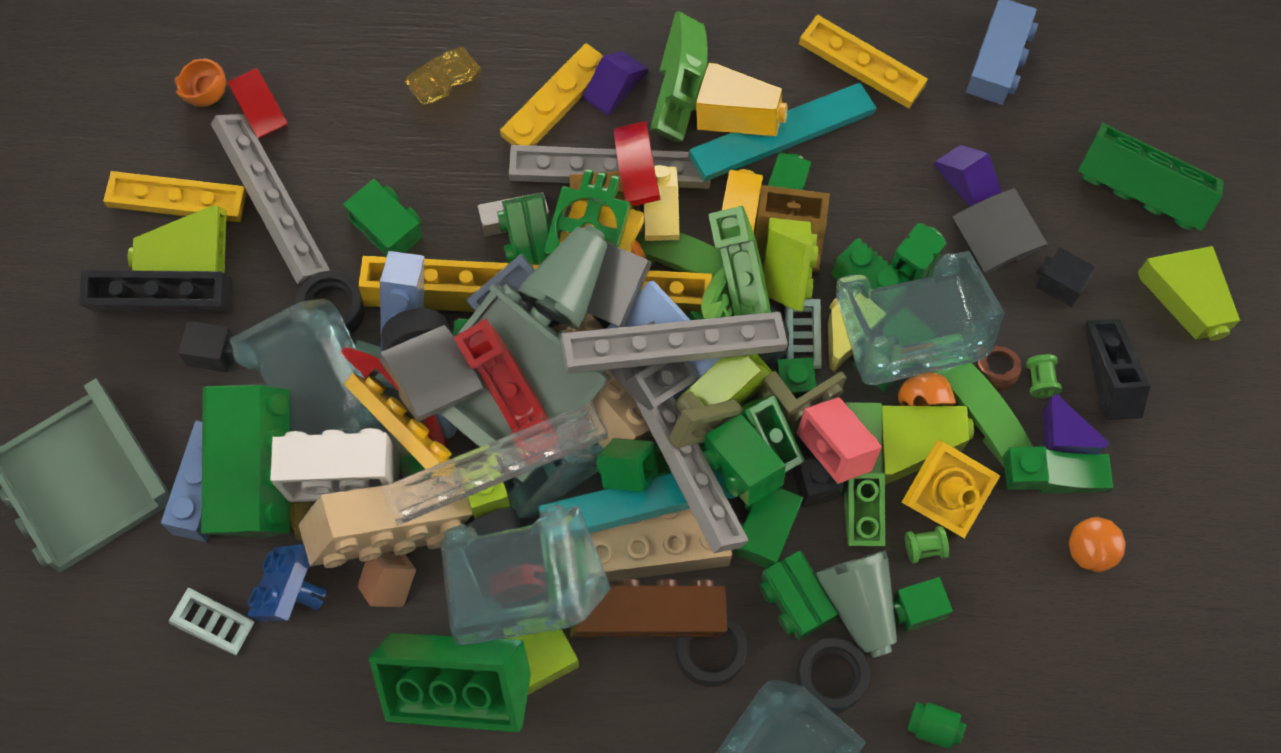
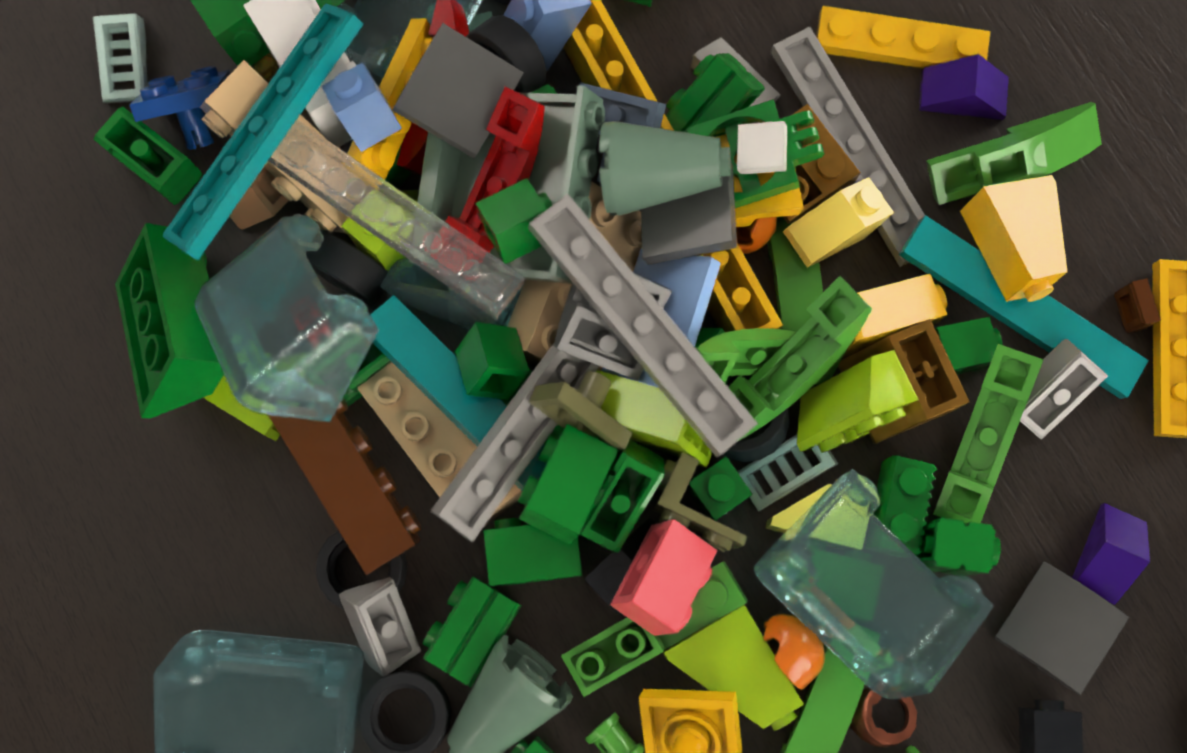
camera: 65 degrees right, 10 degrees up
(309, 635) = (148, 155): none -> green brick
(381, 512) = (262, 130): none -> teal tile
(405, 437) = (361, 106): none -> medium blue brick
(548, 386) = (508, 216): none -> green brick
(593, 209) = (762, 147): none -> white tile
(636, 163) = (863, 162): red slope -> none
(760, 655) = (380, 625): none -> light grey slope
(822, 67) = (1137, 306): none -> reddish brown tile
(845, 145) = (1061, 385): none -> light grey slope
(853, 198) = (988, 435): none -> bright green slope

